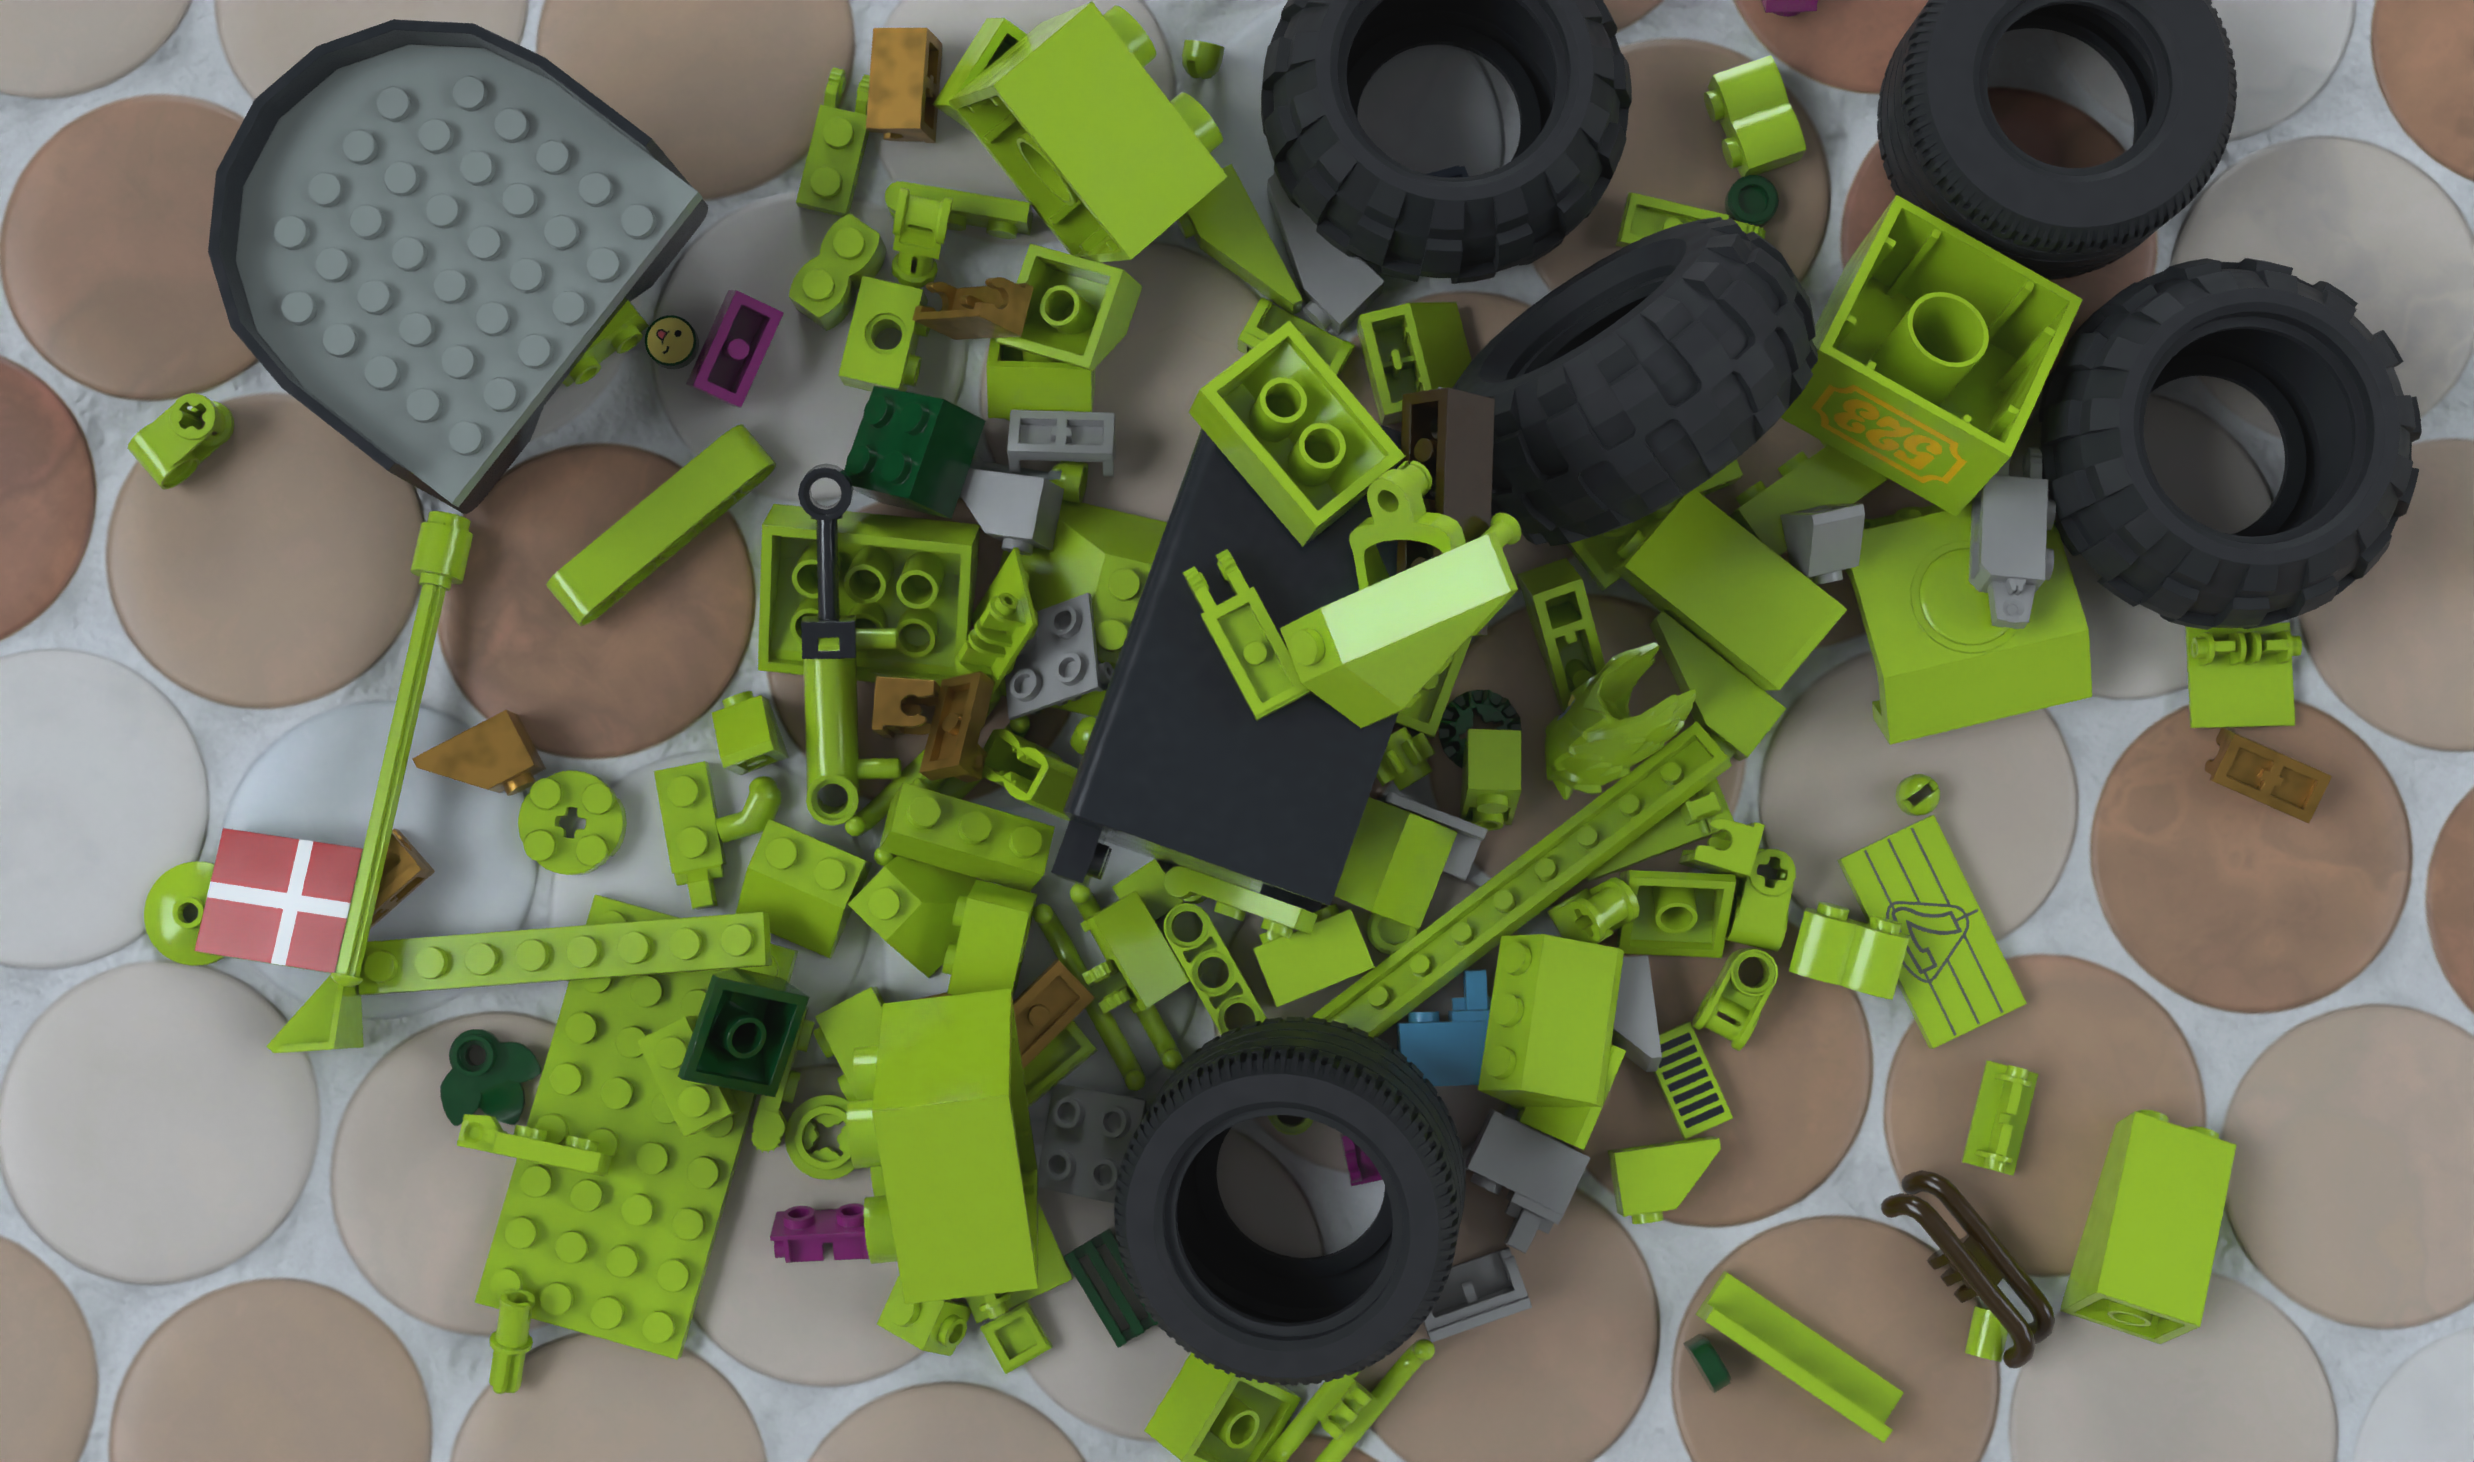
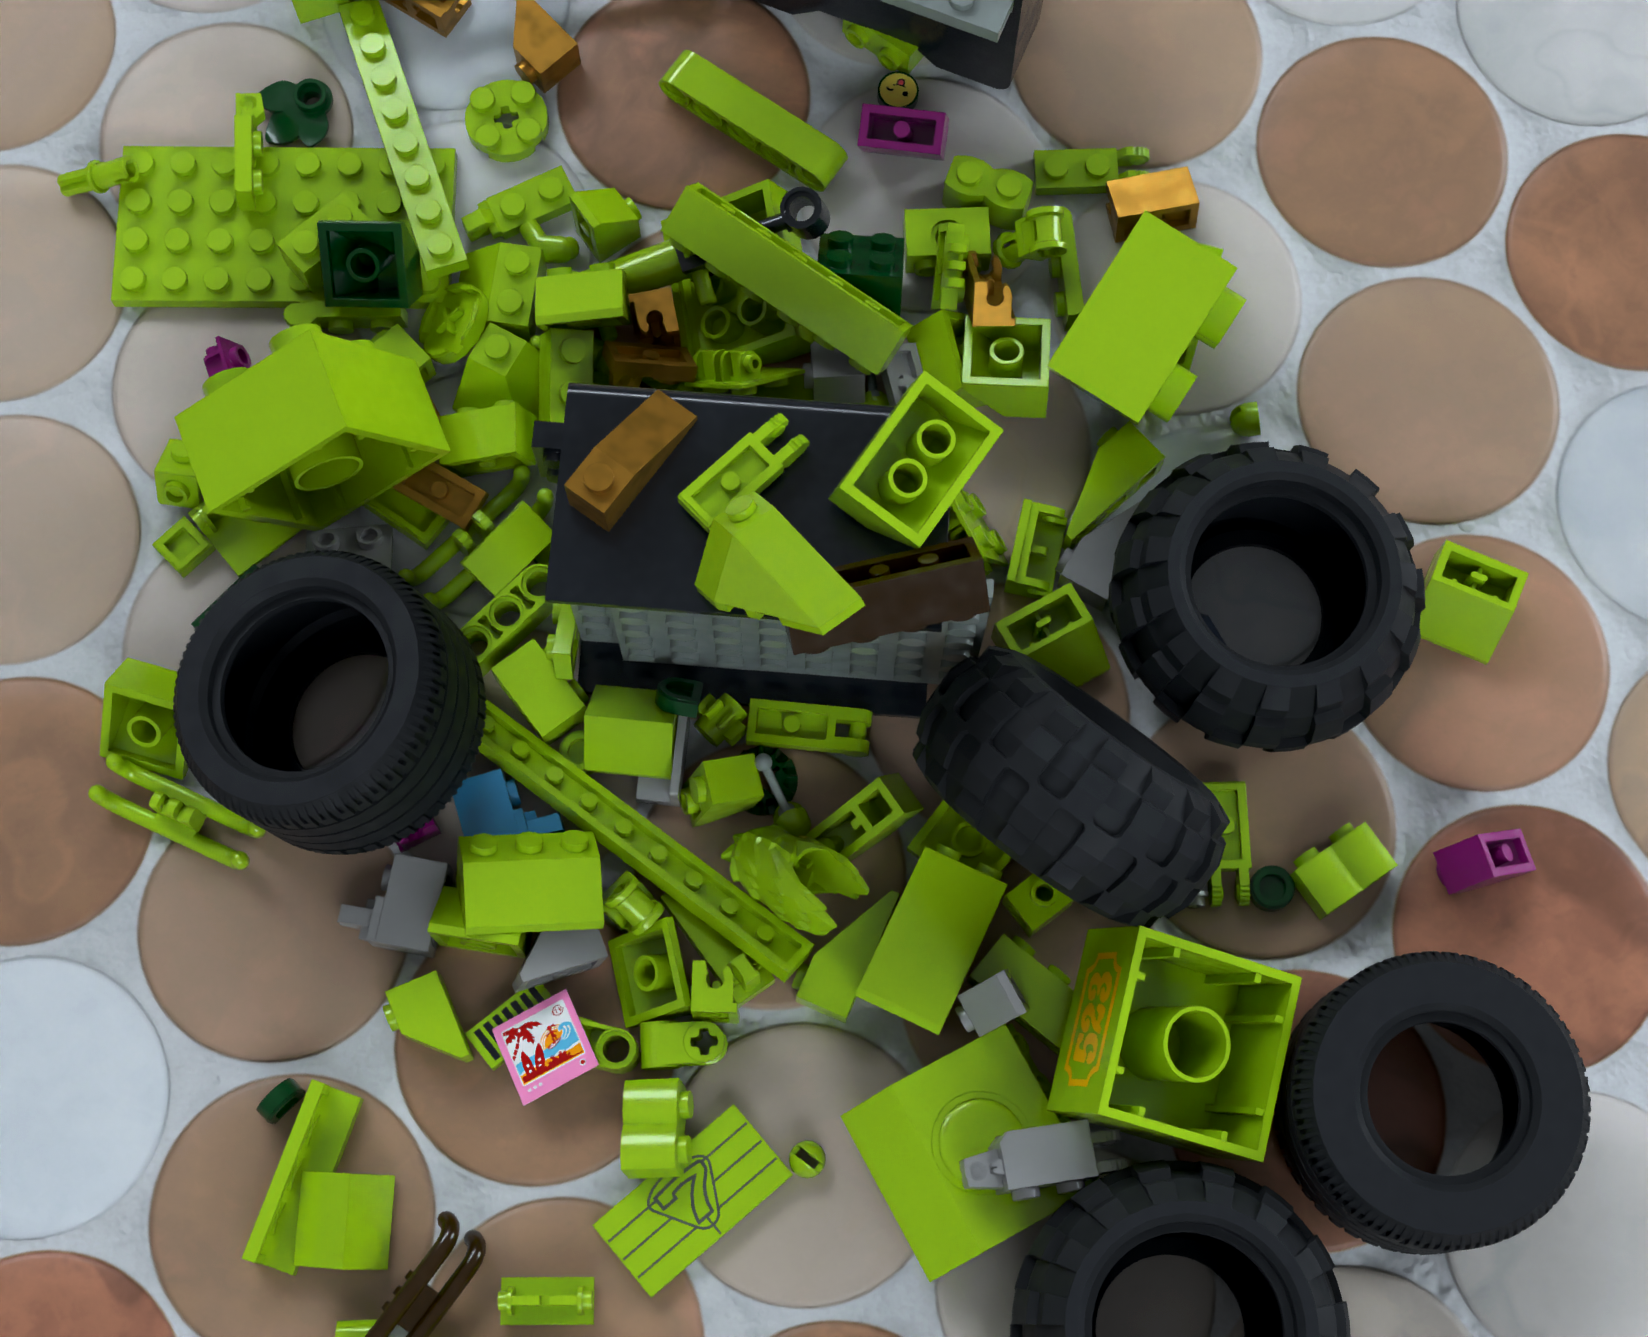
camera: 75 degrees right, 10 degrees down
(830, 949) = (455, 325): none -> lime tile
(862, 785) = (582, 298): none -> lime slope
(911, 536) = (786, 279): none -> lime brick
(934, 342) = (951, 251): none -> lime hinge
(1190, 760) = (627, 459): none -> pearl gold slope
(1382, 800) = (679, 696): none -> dark green tile
(1401, 515) = (865, 547): lime piece -> none
(1477, 1295) = (294, 889): light grey hinge -> none
(1533, 711) = (788, 814): none -> hinge
(1730, 1051) = (545, 1047): none -> sticker
(1862, 1322) = (344, 1220): none -> lime slope

